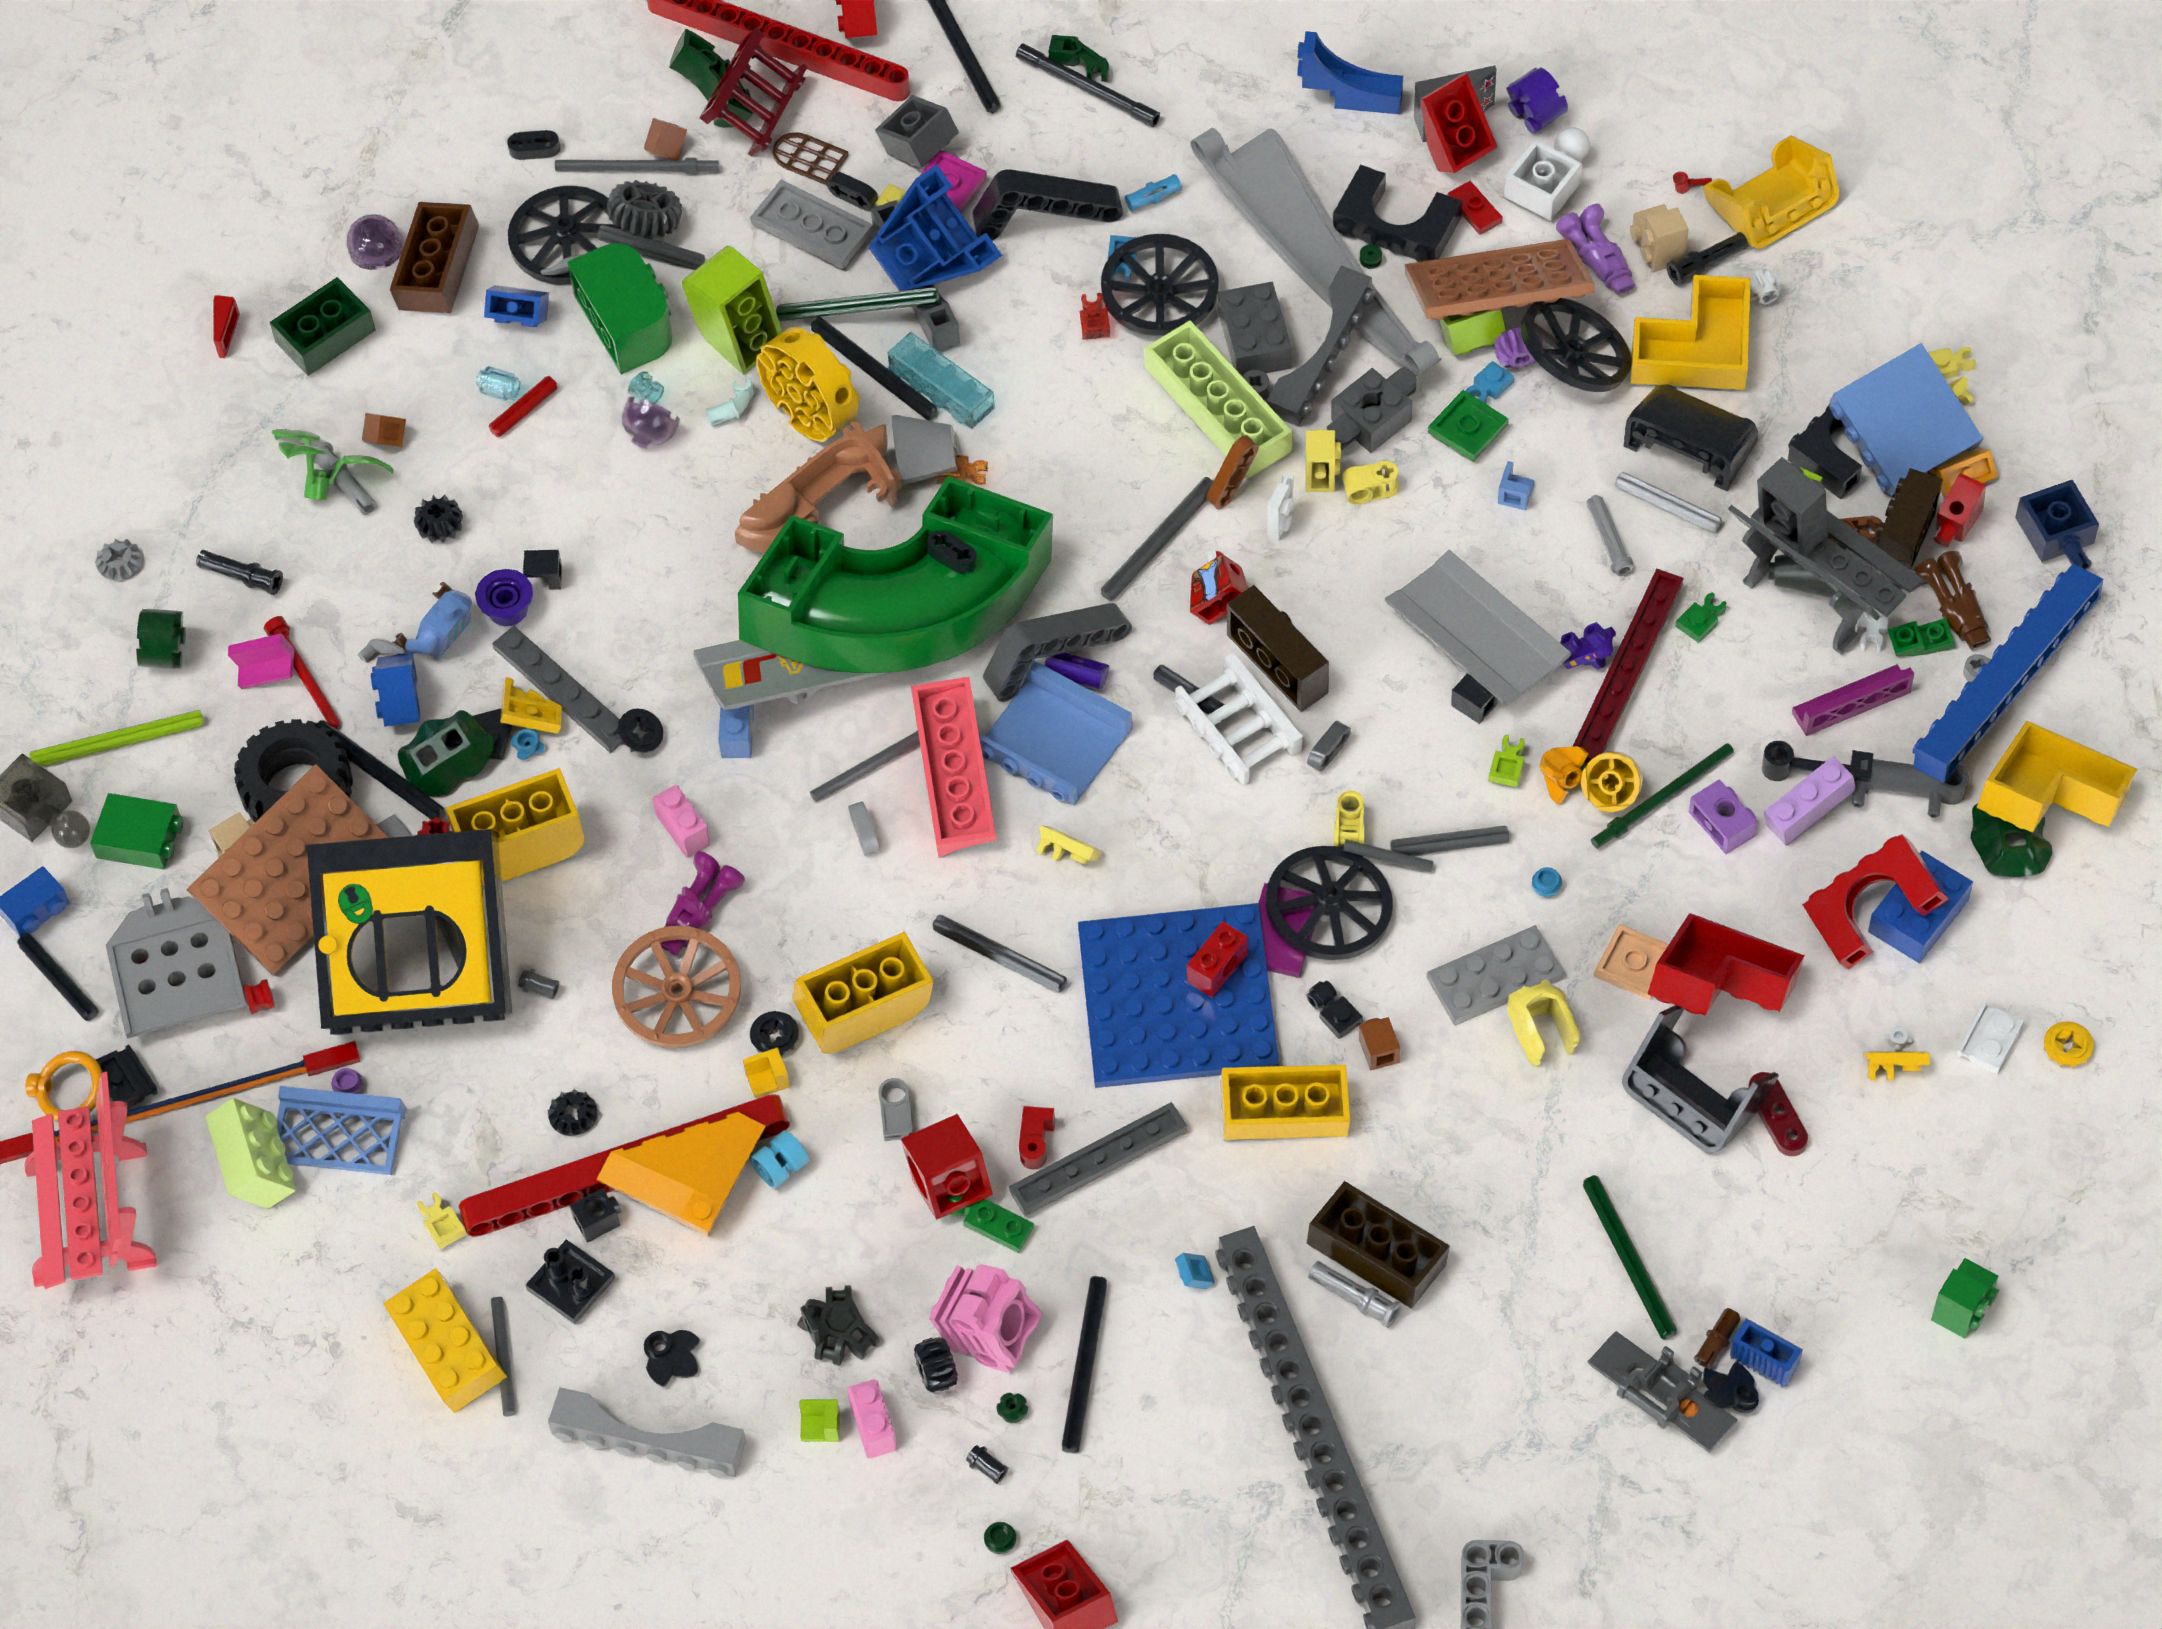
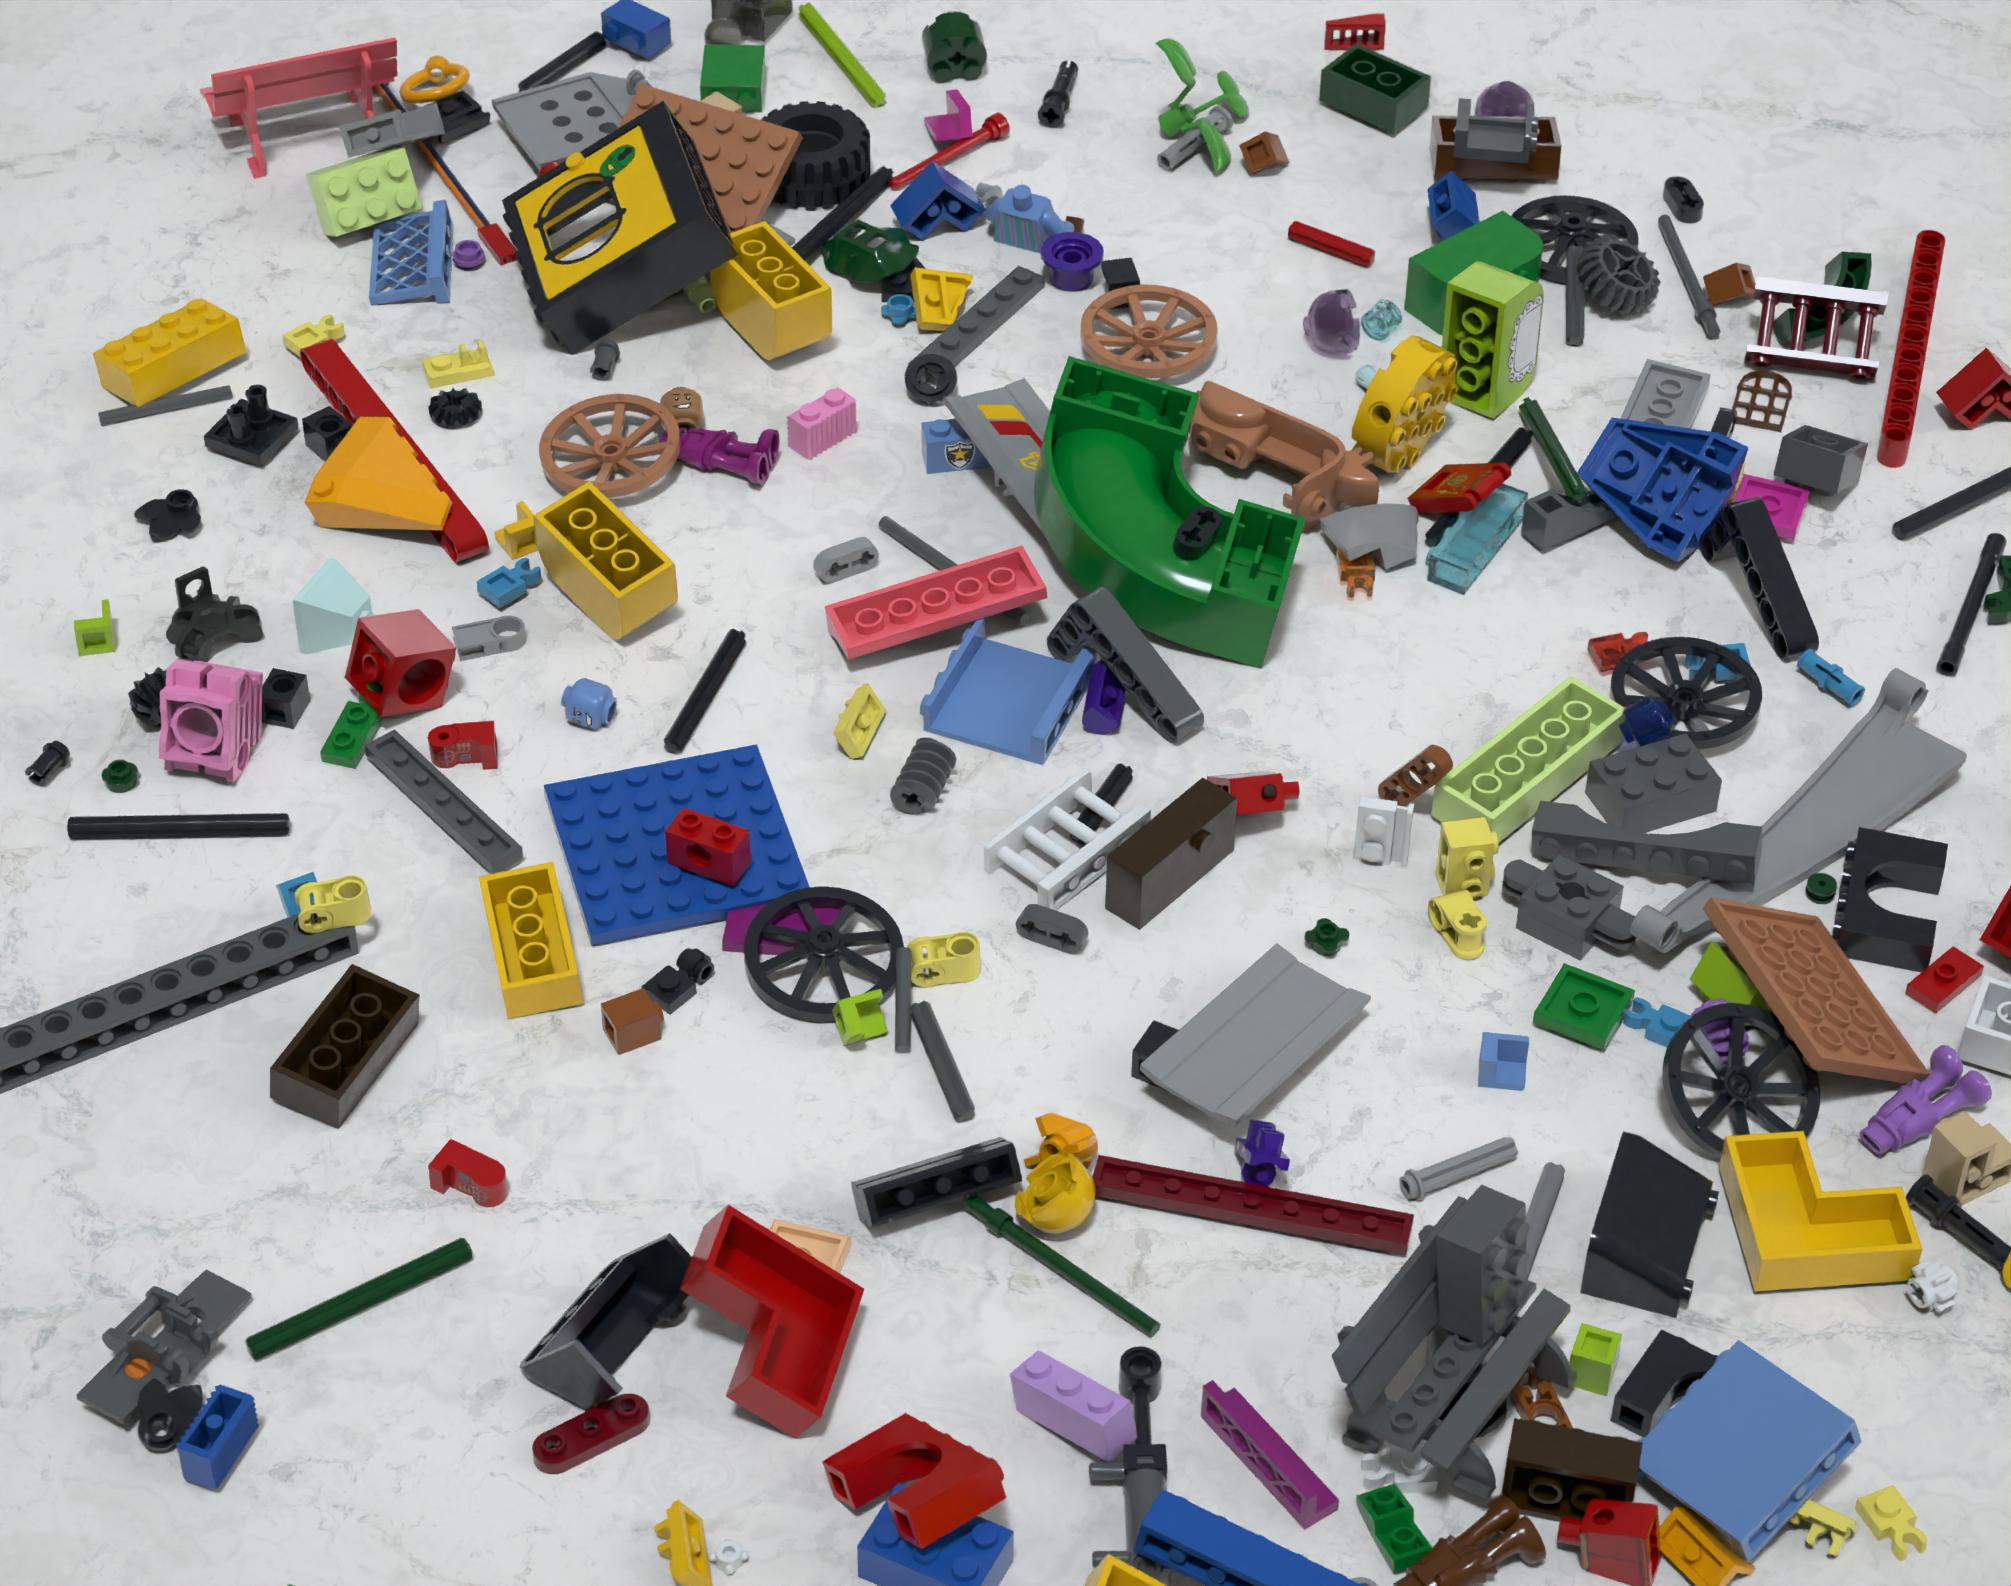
camera: 75 degrees right, 15 degrees down
(113, 568) = (1053, 21): light grey gear -> none
(176, 1115) = (391, 130): none -> light grey panel
(438, 518) = (1162, 205): black gear -> none
(451, 245) = (1494, 137): none -> dark grey panel
(498, 383) = (1350, 217): clear light blue brick -> none
(512, 1106) = (458, 367): none -> light yellow plate
(622, 555) = (1148, 336): none -> nougat wheel
(633, 925) = (685, 407): none -> medium nougat head
(708, 1448) = (88, 463): light grey arch -> none
(789, 1154) = (407, 551): medium azure wheel -> none
(832, 1089) = (507, 585): none -> dark azure plate
(850, 1221) = (329, 609): none -> light aqua slope
(872, 1418) = (95, 663): bright pink brick -> none
(893, 372) = (1459, 487): none -> red container
(939, 1259) = (284, 698): none -> black brick
(1004, 1038) = (589, 703): none -> medium blue head
(1144, 807) = (923, 776): none -> dark grey piece
(1156, 540) = (1306, 744): dark grey axle -> none
(1206, 311) = (1646, 721): none -> clear blue head
(1239, 1236) = (336, 902): none -> light yellow piece
(1258, 378) = (1570, 792): flat silver wheel -> none
(1366, 577) = (1326, 937): none -> dark green plate
(1366, 1299) = (272, 1048): light grey pin -> none
(1402, 887) = (860, 1017): none -> lime panel
(1490, 974) = (755, 1127): light grey plate -> none
(1507, 765) = (1068, 1099): lime plate -> none
(1517, 1170) = (469, 1173): none -> red leg
(1541, 1000) = (677, 1162): light yellow piece -> none
(1546, 882) = (898, 1154): dark azure plate -> none
(1583, 857) = (936, 1181): none -> black brick
(1699, 620) = (1353, 1277): green plate -> none
(1717, 1338) = (267, 1401): reddish brown axle -> none
(1725, 831) = (1036, 1321): medium lavender brick -> none

